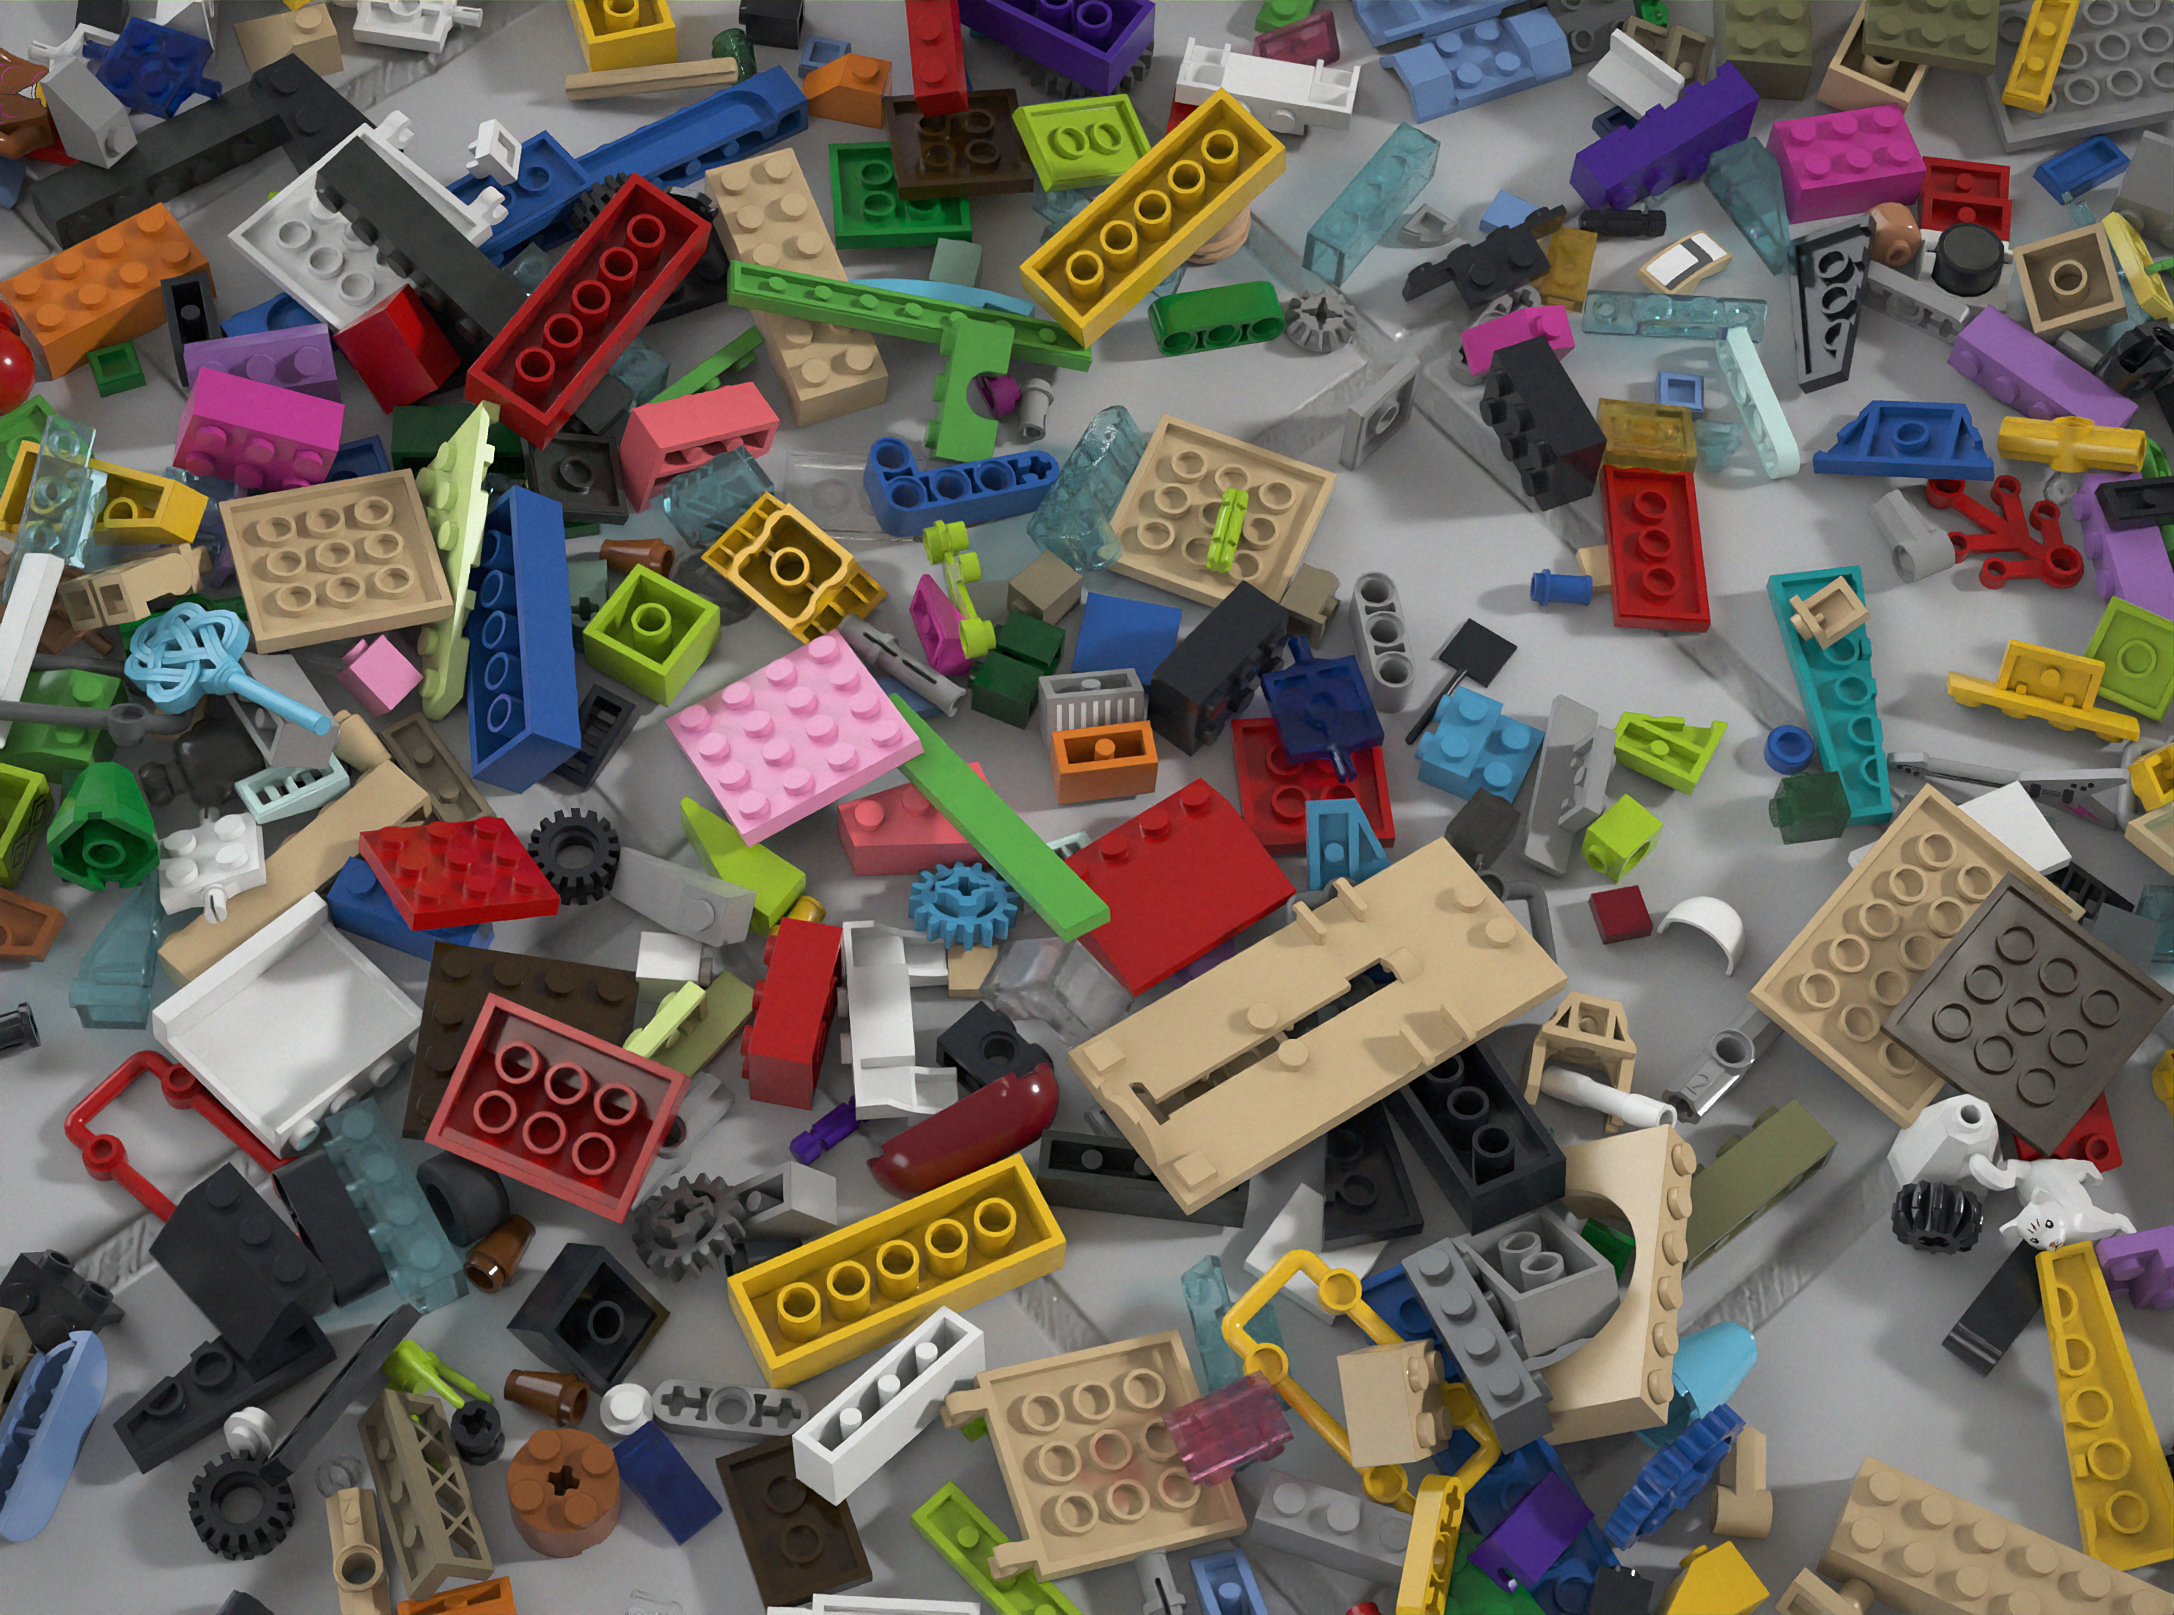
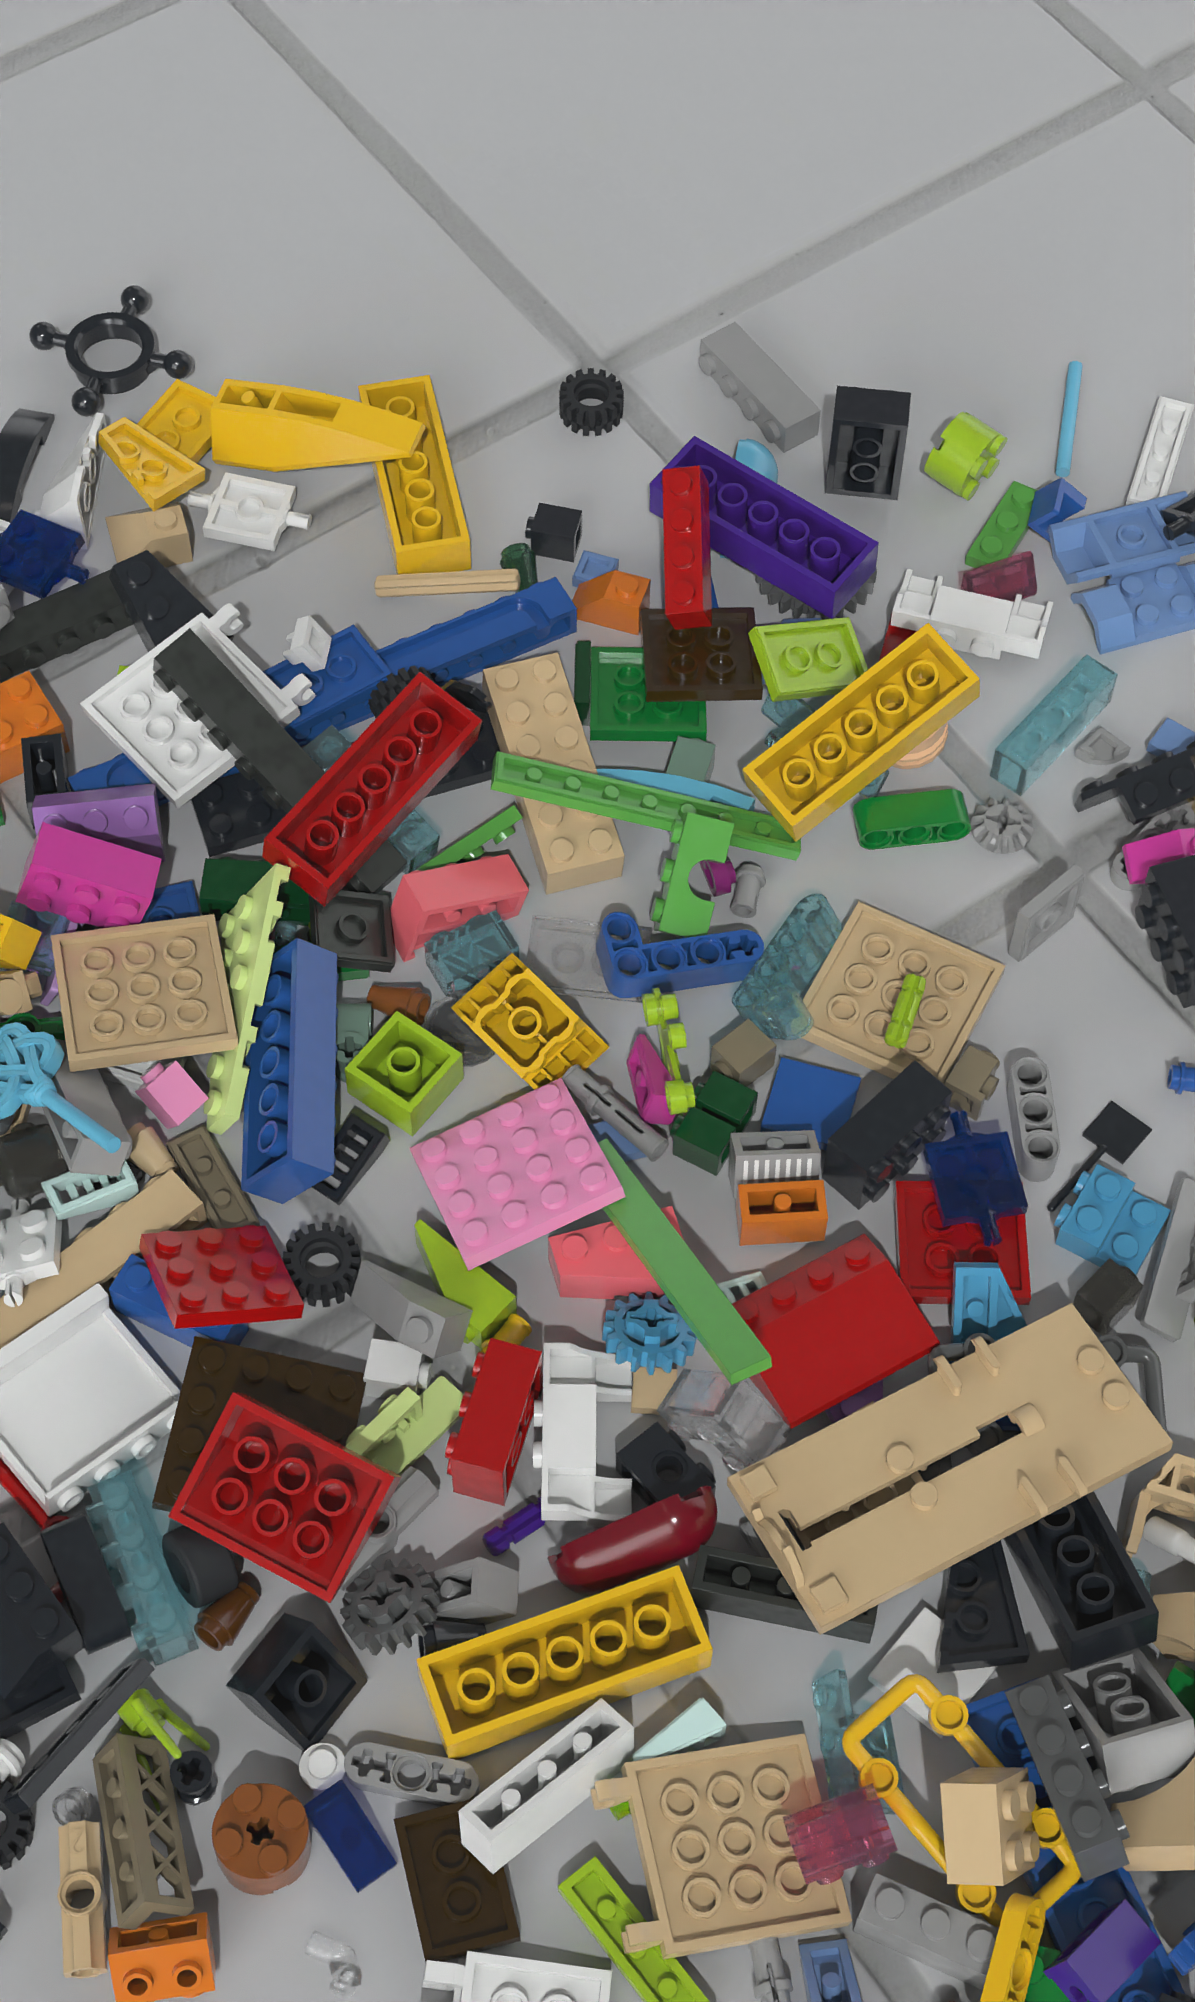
camera: 10 degrees right, 0 degrees up
(398, 350) = (212, 810): red slope -> none
(550, 1395) = (257, 1748): reddish brown cone -> none
(821, 179) = (582, 680): none -> dark green tile
(1050, 1333) = (686, 1733): none -> light aqua slope

